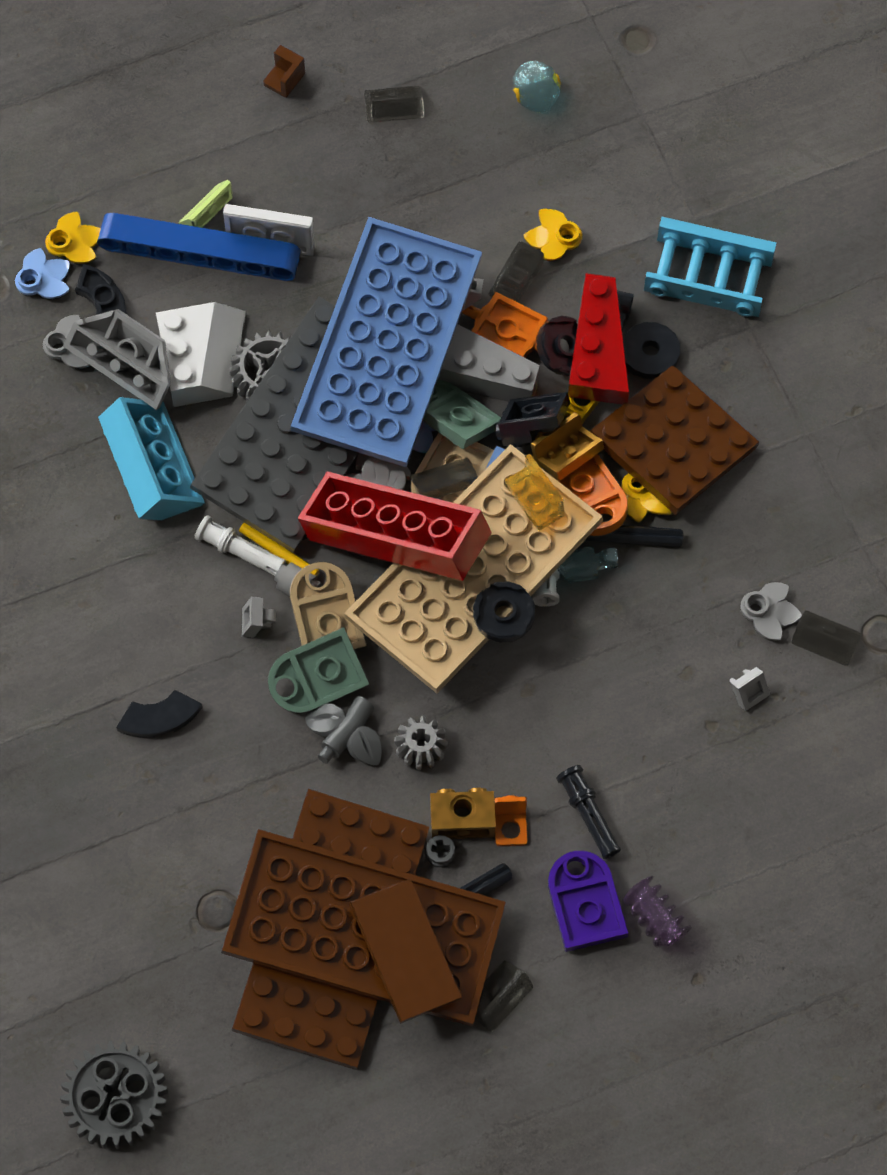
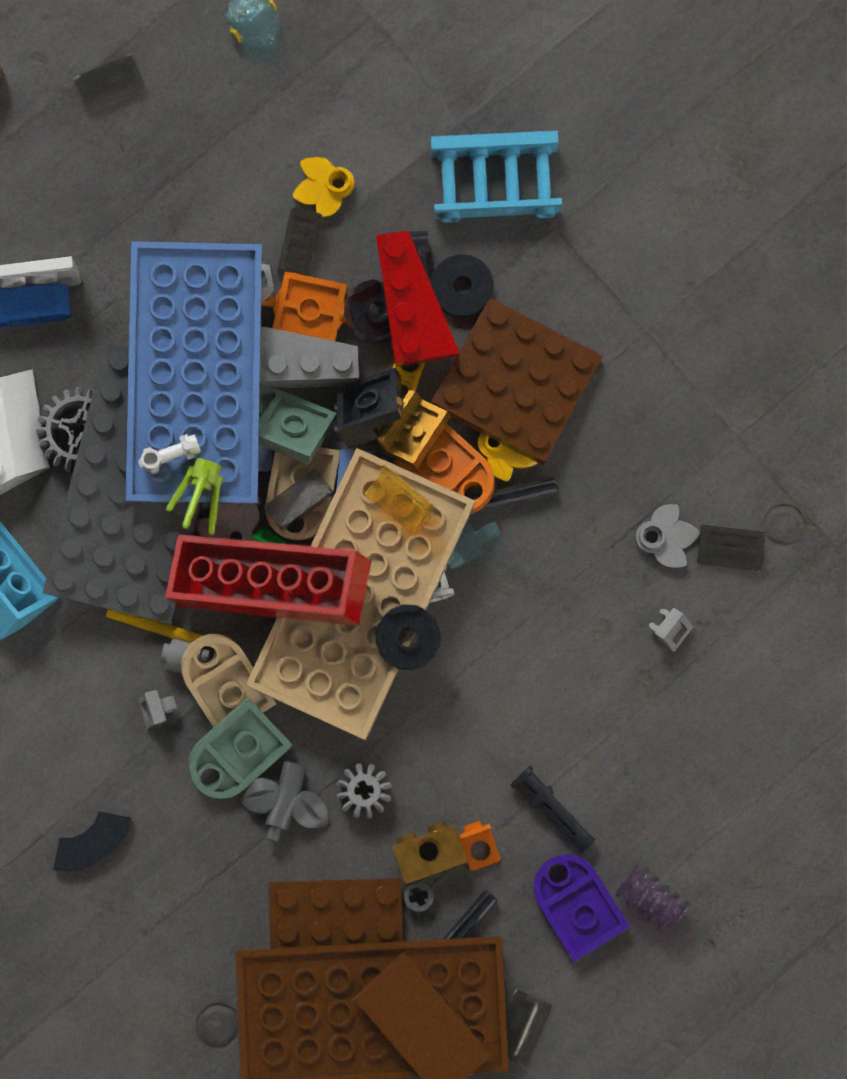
camera: 20 degrees left, 15 degrees up
(228, 541) = (99, 633): white pin -> none
(325, 395) = (152, 459): none -> white bar
(365, 424) = (204, 476): none -> lime plant

